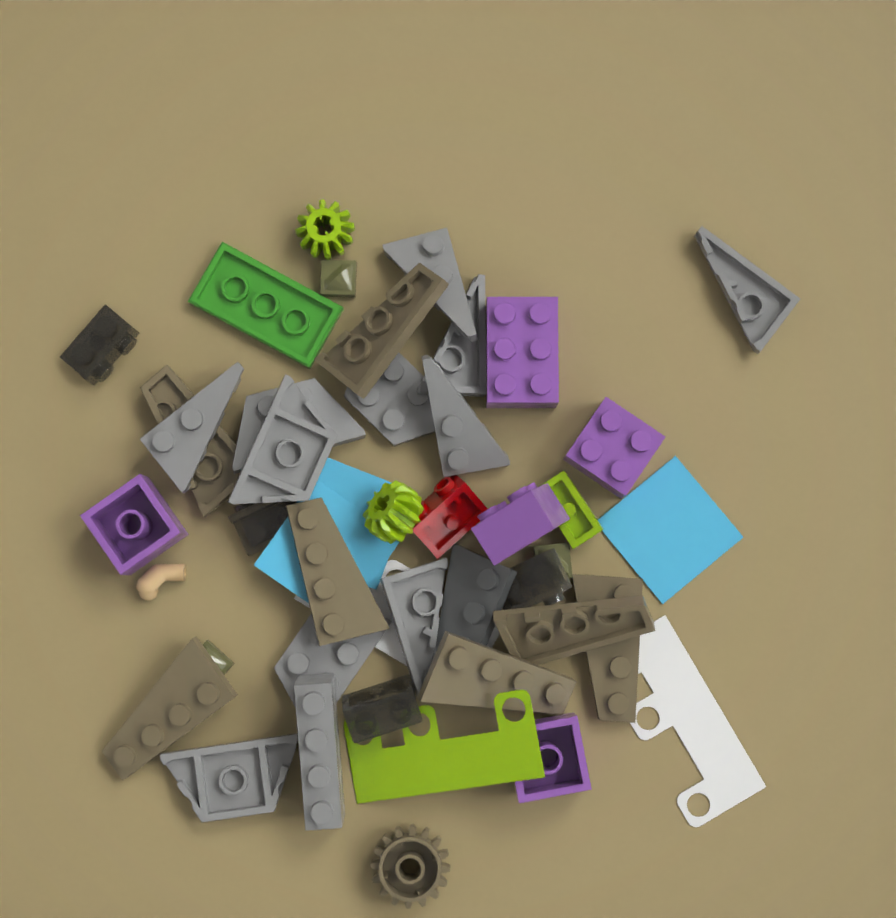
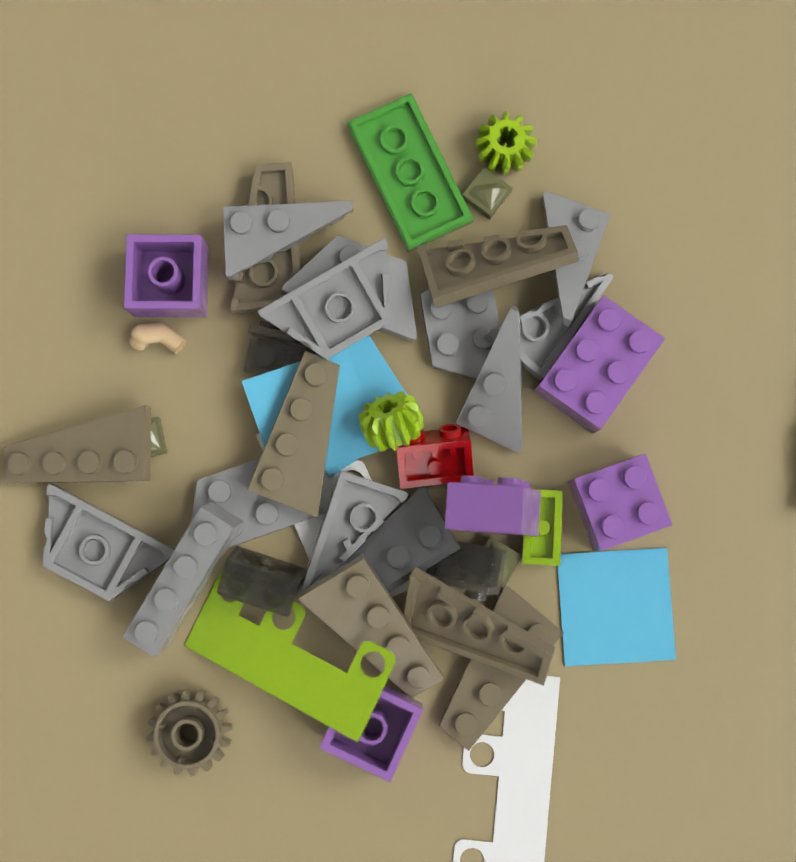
camera: 30 degrees right, 0 degrees up
(100, 345) = (247, 108): clear smoke bracket -> none

